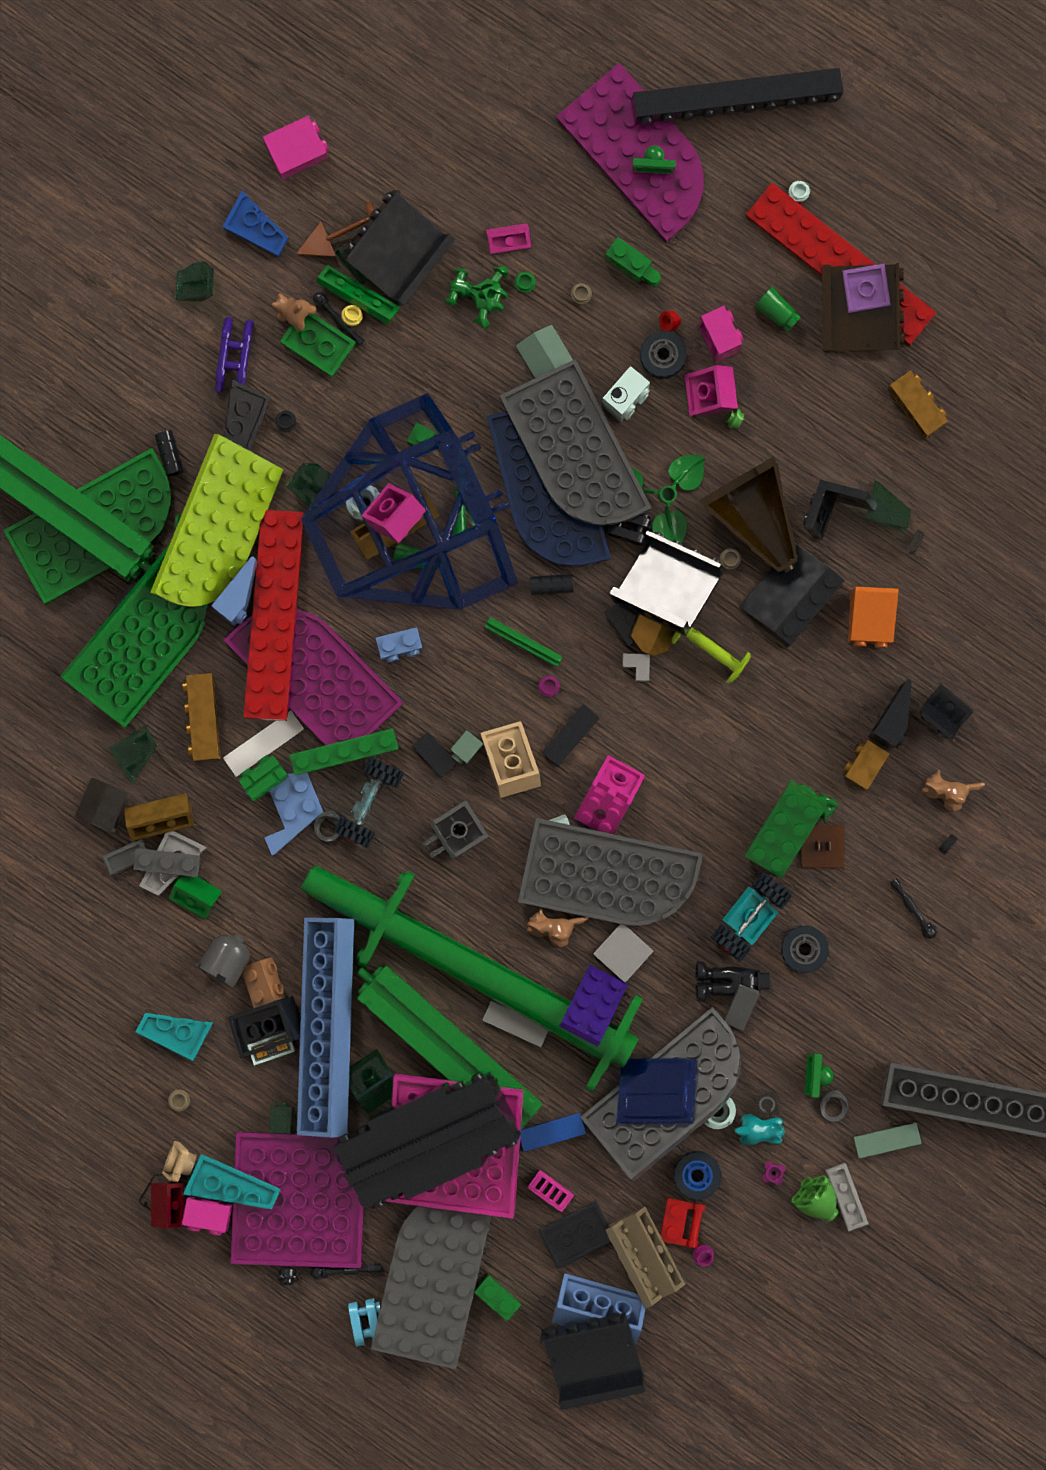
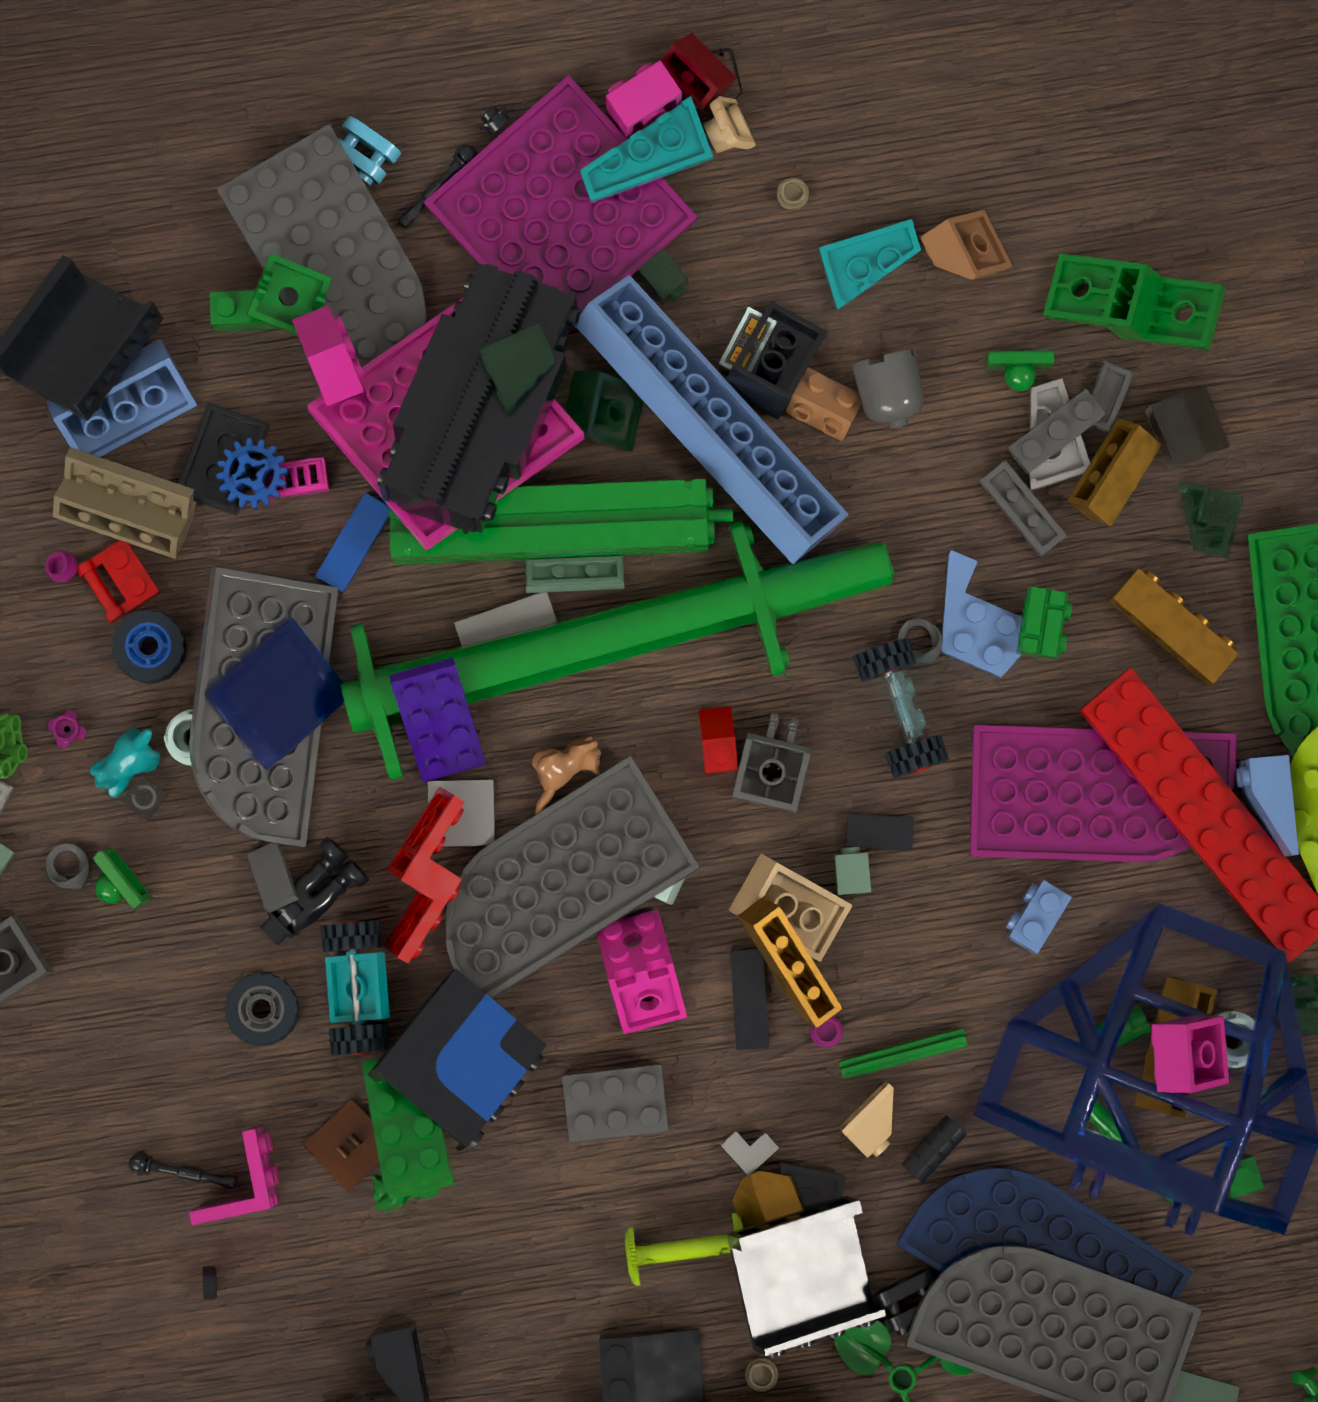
camera: 145 degrees right, 0 degrees up
(69, 889) = (1134, 301): none -> green bracket
(121, 992) = (966, 246): none -> medium nougat slope
(153, 911) = (1020, 366): none -> green tile
(195, 895) = (991, 427): green panel -> none
(218, 842) = (1022, 508): none -> dark grey plate
(263, 744) = (1079, 663): white sticker -> none
(344, 752) = (982, 737): green plate -> none
(395, 1138) = (517, 363): none -> clear green slope
(460, 1270) = (280, 274): none -> green piece
(461, 1015) = (574, 574): none -> sand green tile
(469, 870) = (718, 741): none -> red slope
(479, 1231) = (330, 354): none -> dark pink brick
(536, 733) = (790, 962): none -> pearl gold brick
(565, 1226) = (239, 481): none -> blue gear
(569, 624) = (871, 1122): none -> tan slope
(668, 935) = (432, 881): none -> red bracket
(679, 746) = (615, 1103): none -> dark grey brick
(733, 835) = (460, 1059): none -> black panel
(865, 765) = (386, 1283): pearl gold brick -> none
(878, 866) = (263, 1178): none -> dark pink bracket
(952, 793) = (258, 1345): medium nougat animal -> none

